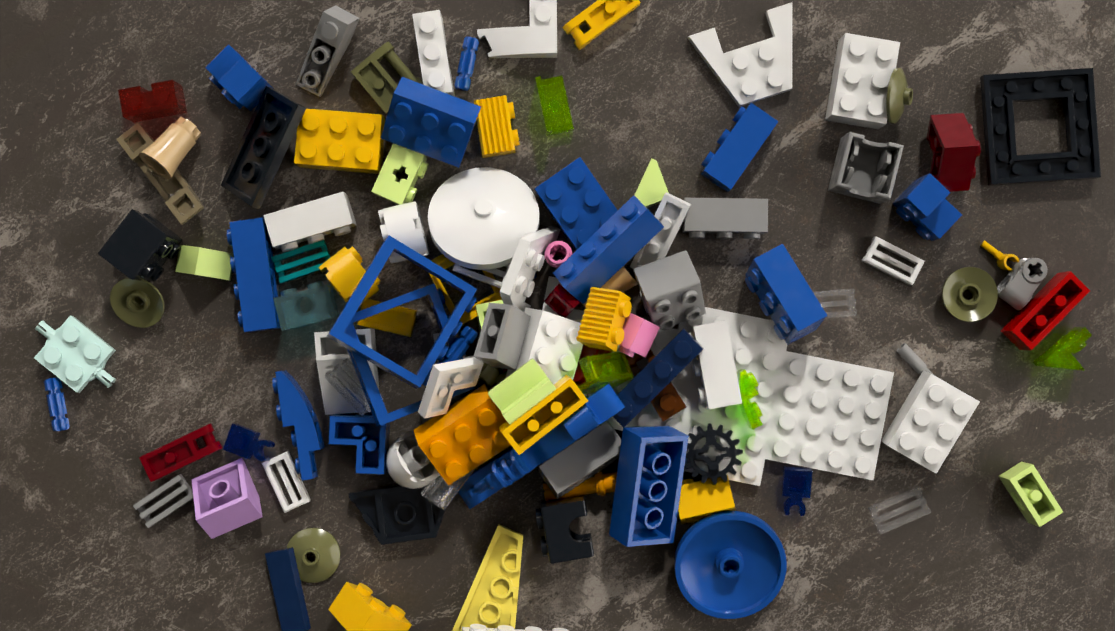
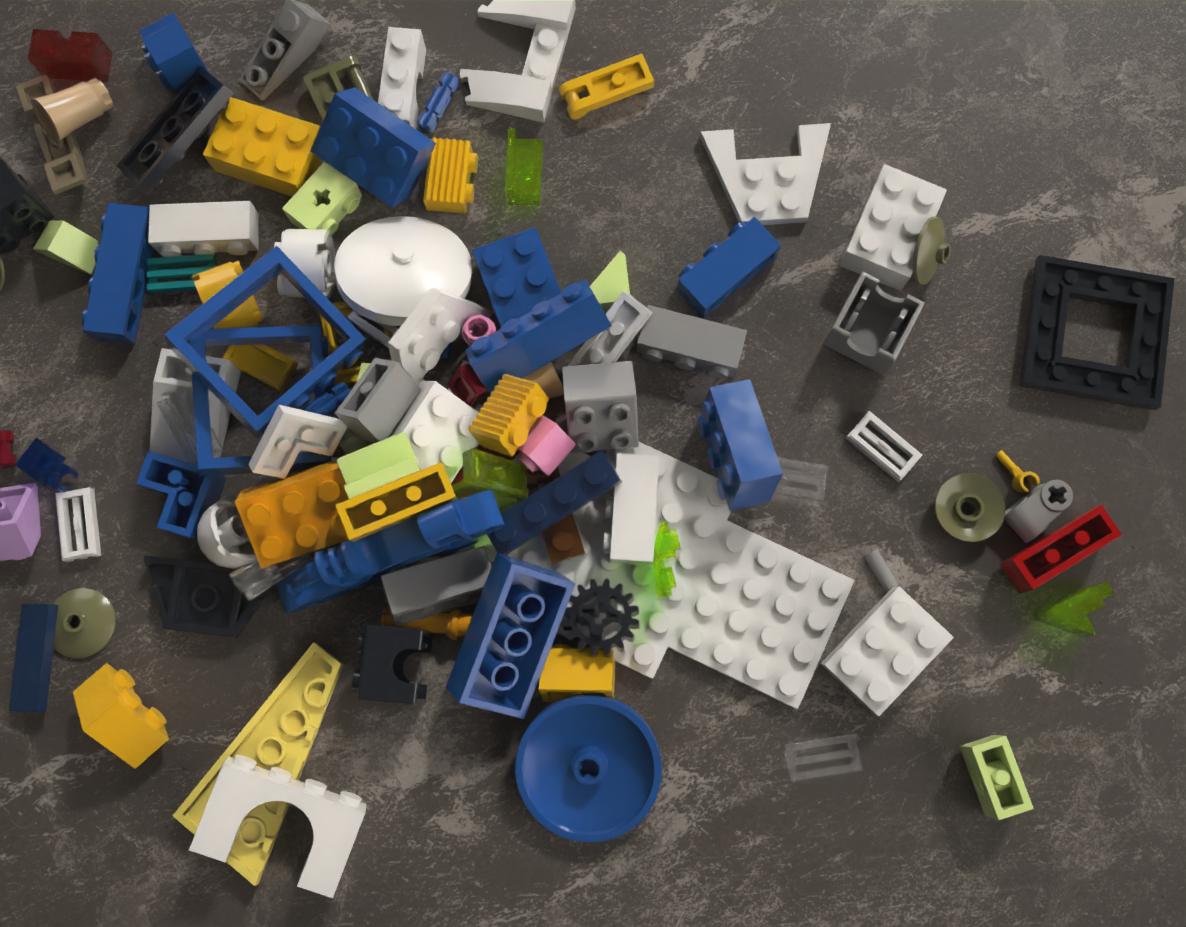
camera: 20 degrees right, 10 degrees down
(289, 310) = (148, 315): clear light blue brick -> none
(298, 411) = (118, 444): blue slope -> none
(796, 485) = (699, 689): clear blue plate -> none
(927, 208) = (937, 388): blue brick -> none
(953, 150) = (985, 331): dark red brick -> none

